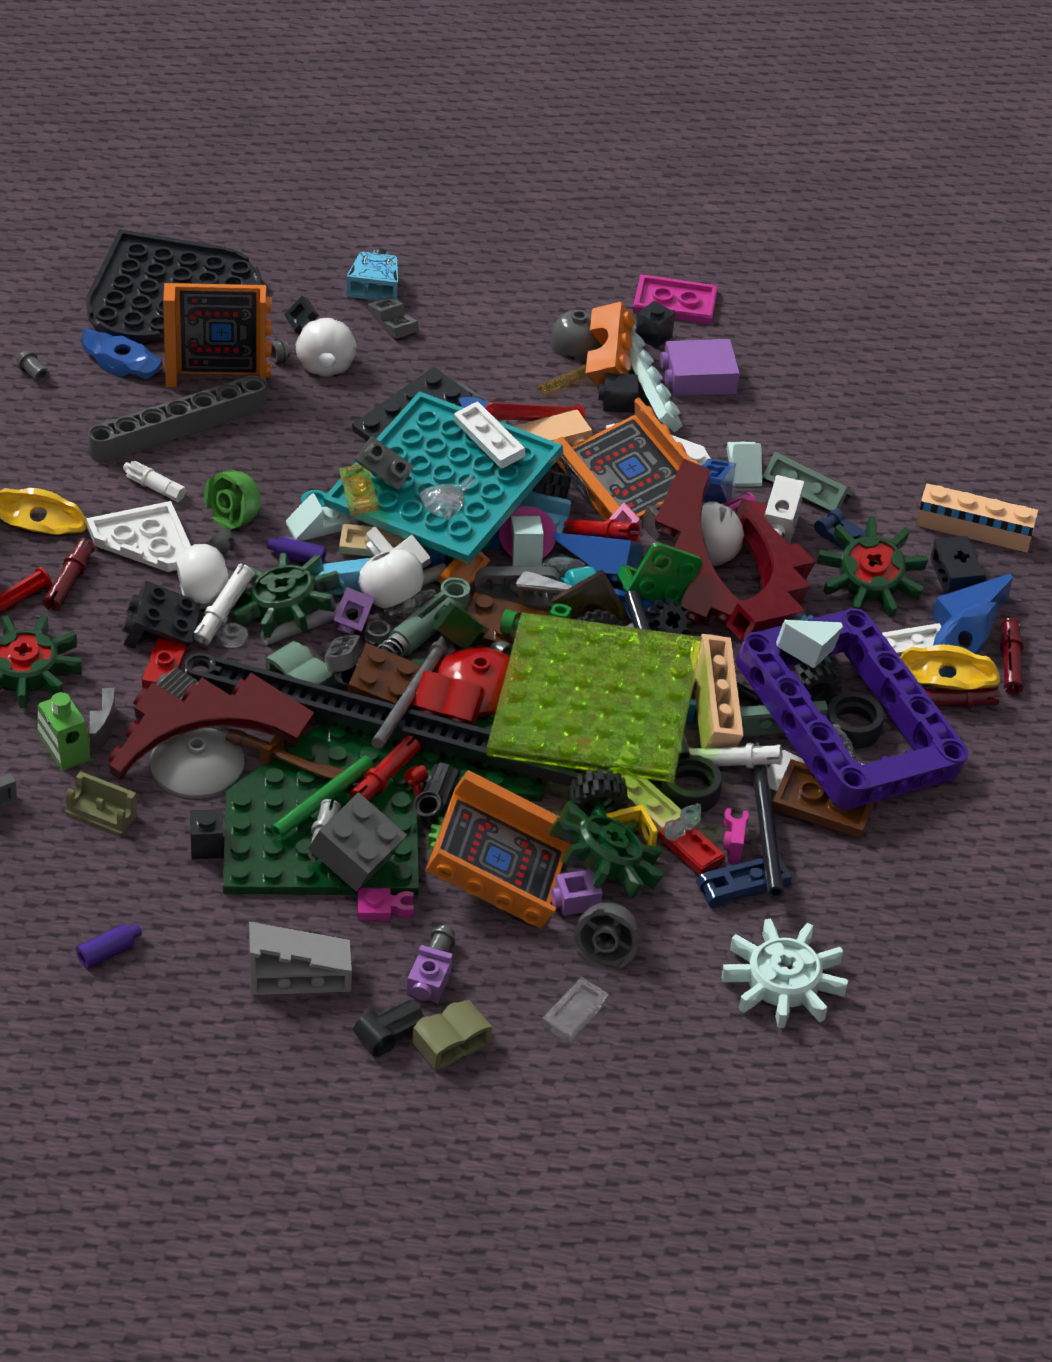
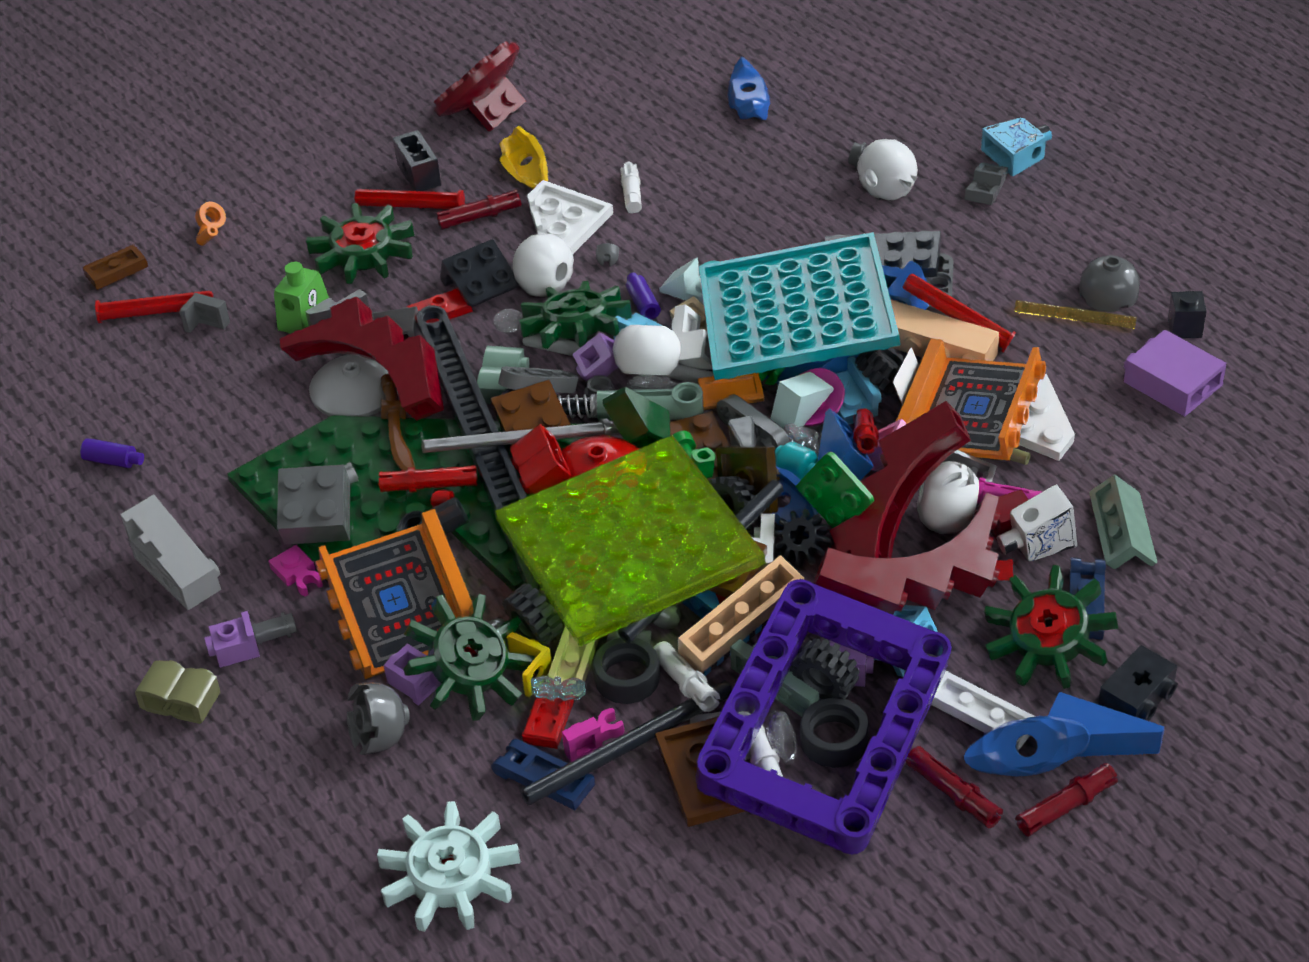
camera: 60 degrees right, 0 degrees up
(29, 362) = (681, 61): dark grey pin -> none
(101, 804) = (250, 366): olive hinge -> none
(131, 281) = (856, 60): black plate -> none
(177, 418) = (712, 155): dark grey beam -> none
(206, 834) = (266, 428): black brick -> none
(216, 330) = (792, 99): panel -> none
(217, 613) = (518, 294): white pin -> none
(232, 494) = (652, 229): bright green cylinder -> none
(301, 314) = (916, 138): black plate -> none
(328, 791) = (365, 461): green piece -> none
(358, 490) = (717, 271): clear yellow plate -> none
(382, 1031) = (147, 646): black piece -> none
(384, 463) = (750, 260): dark grey hips -> none
(445, 499) = (757, 317): clear piece -> none
(489, 434) = (854, 291): white plate -> none
(574, 1009) = (276, 751): clear plate -> none
(613, 330) = (1092, 315): orange arch -> none
(619, 392) = (1069, 346): black brick -> none
(650, 381) = (1117, 345): light aqua plate -> none
(687, 299) = (1251, 311): dark pink tile -> none
(721, 480) = (1018, 458): blue slope -> none
(748, 463) = (1089, 469): light aqua slope -> none
(809, 639) = (842, 625): light aqua slope -> none
(971, 669) = (956, 735): yellow piece -> none
(977, 517) = (1226, 663): light nougat brick -> none

